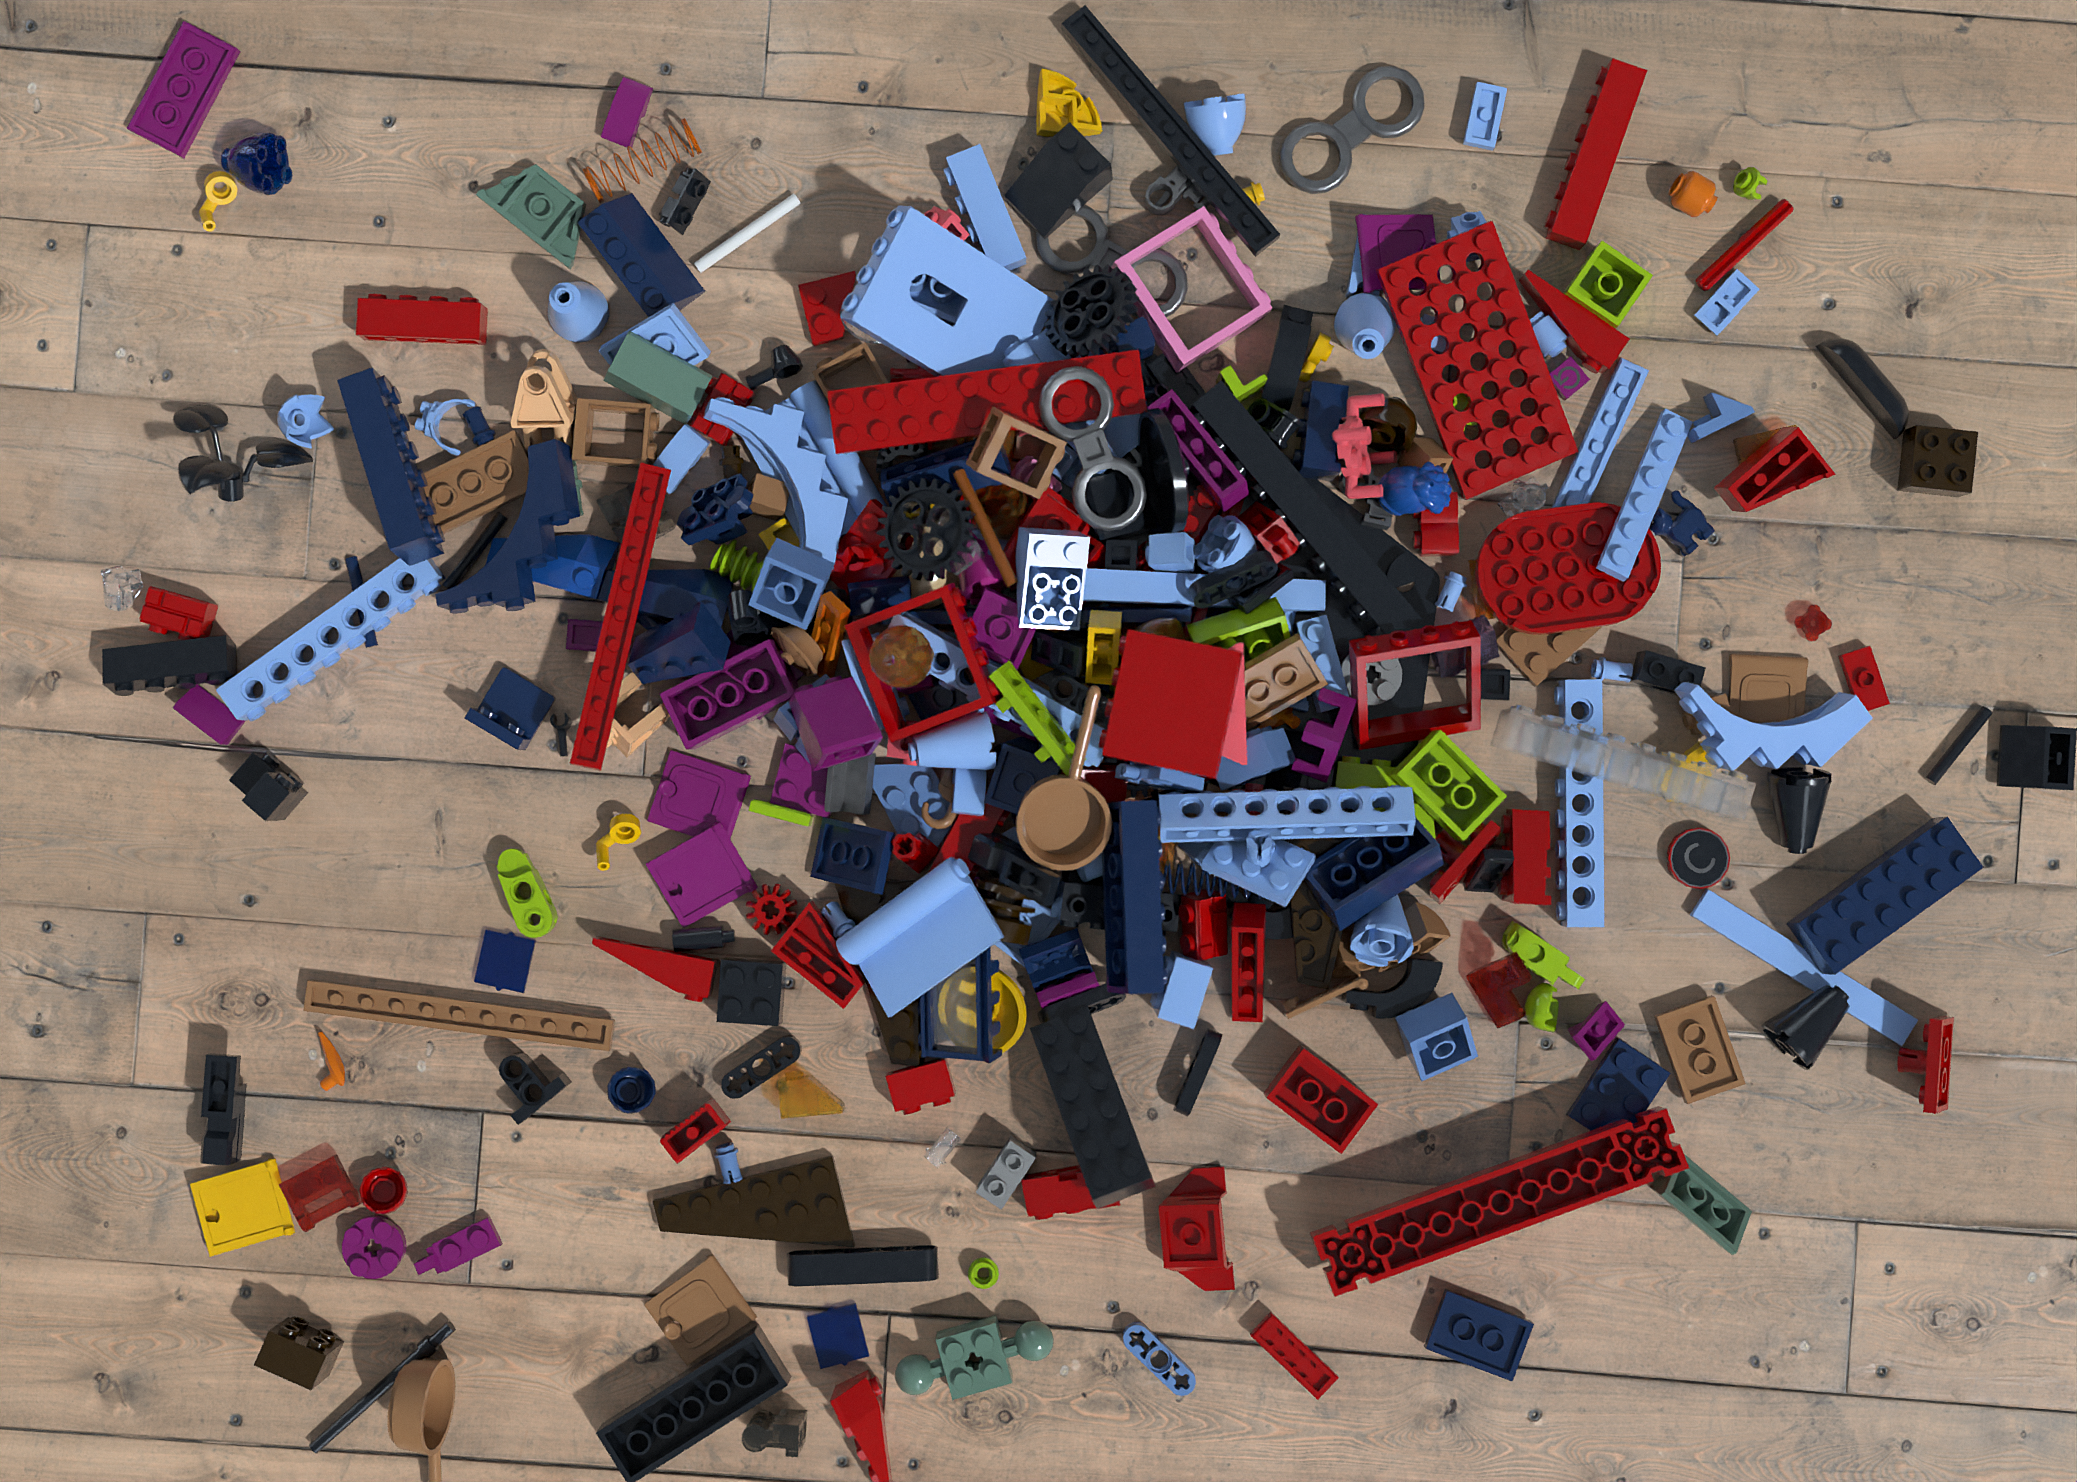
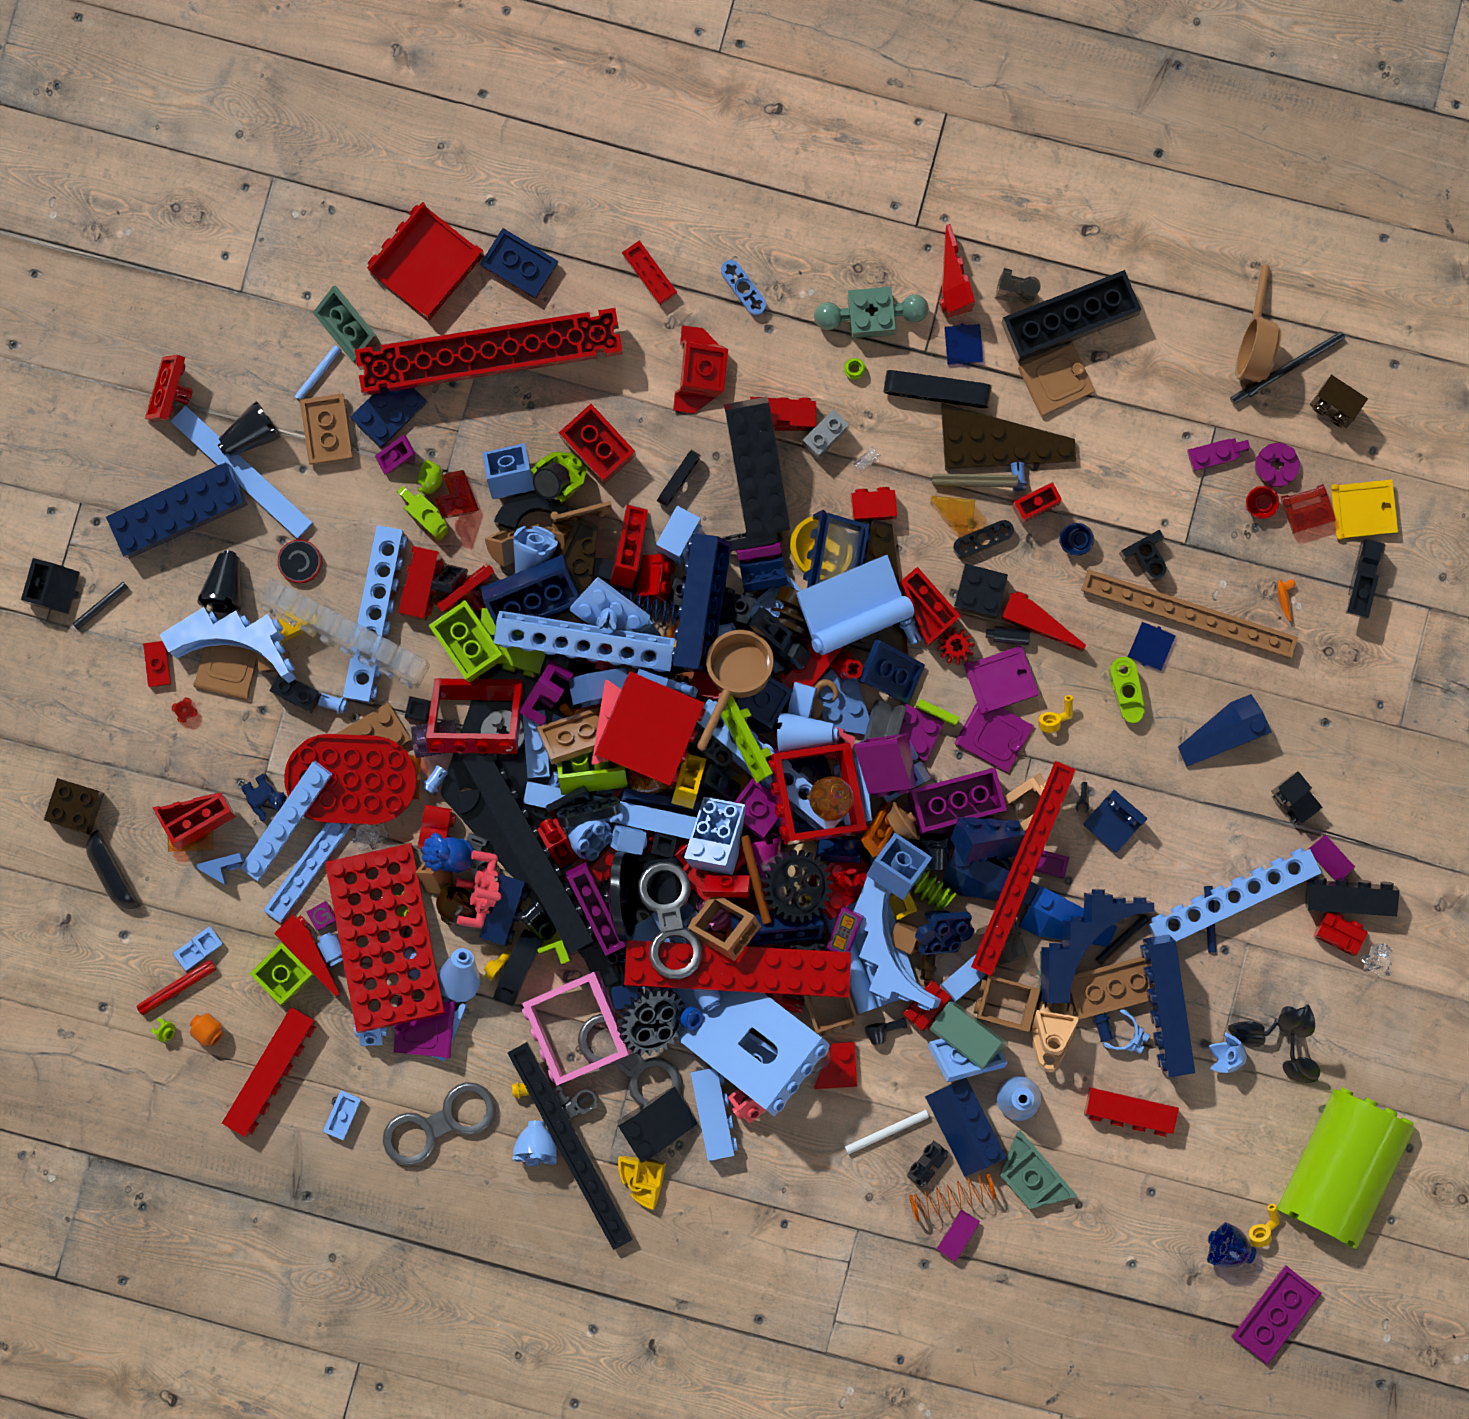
camera: 170 degrees left, 5 degrees down
(121, 298) = (1346, 1167): none -> lime cylinder
(373, 869) = (1231, 727): none -> dark blue wedge
(786, 1146) = (975, 480): none -> dark tan axle
(851, 485) = (845, 930): none -> tile
(1023, 510) = (726, 886): none -> red plate
(1038, 327) = (691, 1018): none -> blue tile
(1366, 1043) = (552, 476): none -> piece
(1611, 1313) = (424, 261): none -> red panel
(1727, 1126) = (318, 372): none -> light blue bar

